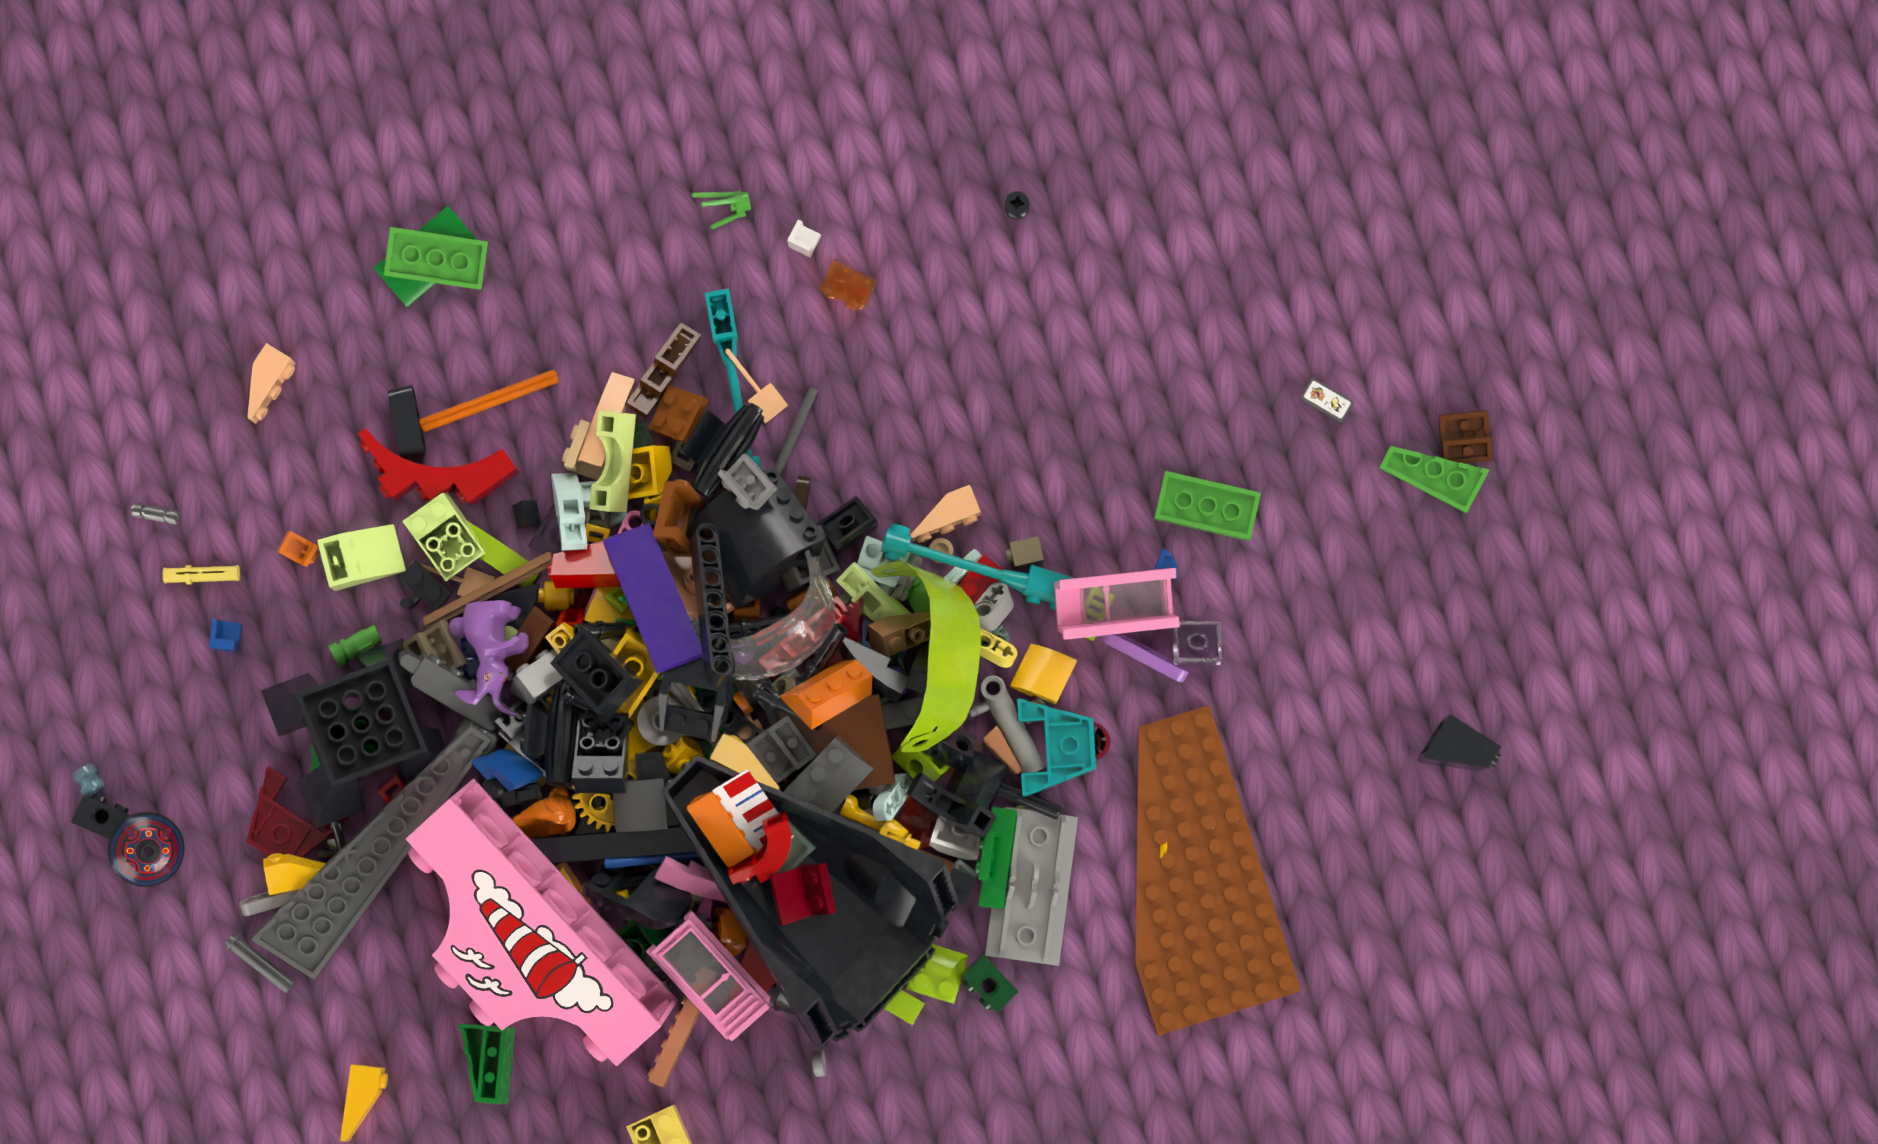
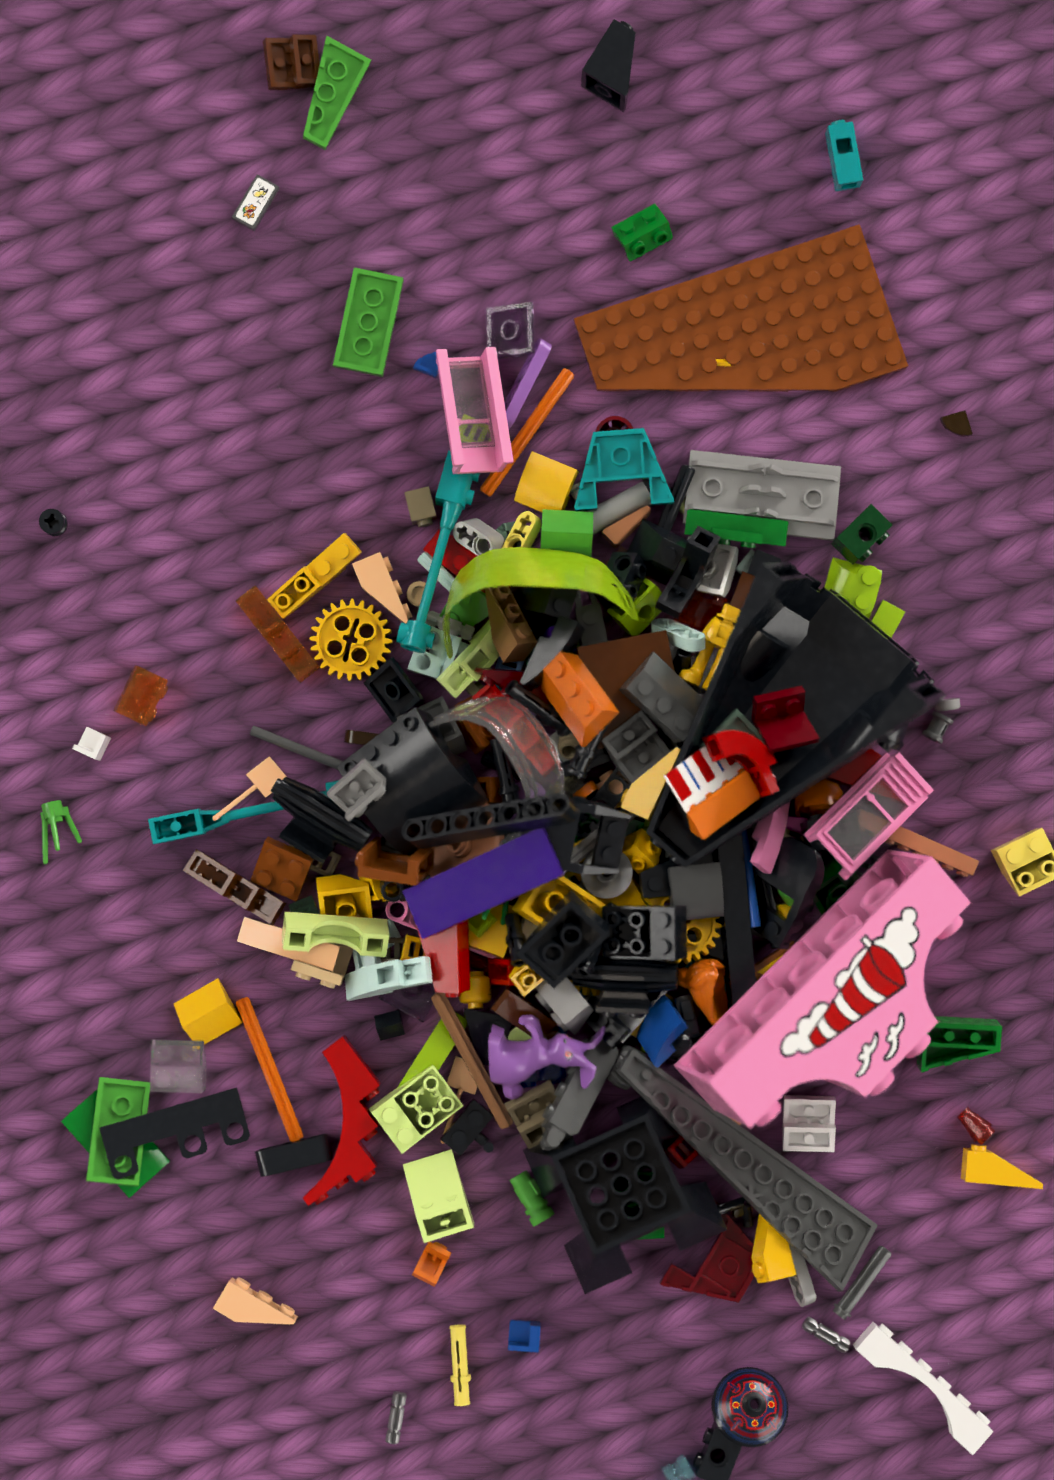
camera: 90 degrees left, 5 degrees up
(191, 982) = (882, 1351): none -> white arch
(211, 926) = (826, 1334): none -> flat silver axle
(404, 1079) = (976, 1126): none -> clear red cone
(415, 915) = (809, 1123): none -> white slope
(443, 313) = (176, 1120): none -> black piece
(494, 314) = (178, 1066): none -> clear slope
(544, 343) = (207, 1012): none -> yellow slope
(796, 1053) = (937, 727): none -> dark grey bush
(904, 414) = (277, 634): none -> clear orange slope
(904, 462) = (328, 634): none -> yellow gear
(959, 450) = (314, 576): none -> yellow slope
(995, 691) = (567, 531): none -> bright green slope
(1099, 1084) = (957, 423): none -> dark brown tile
(1100, 660) = (530, 428): none -> orange axle
(1294, 774) = (643, 232): none -> green bracket
(1370, 976) = (844, 155): none -> teal brick

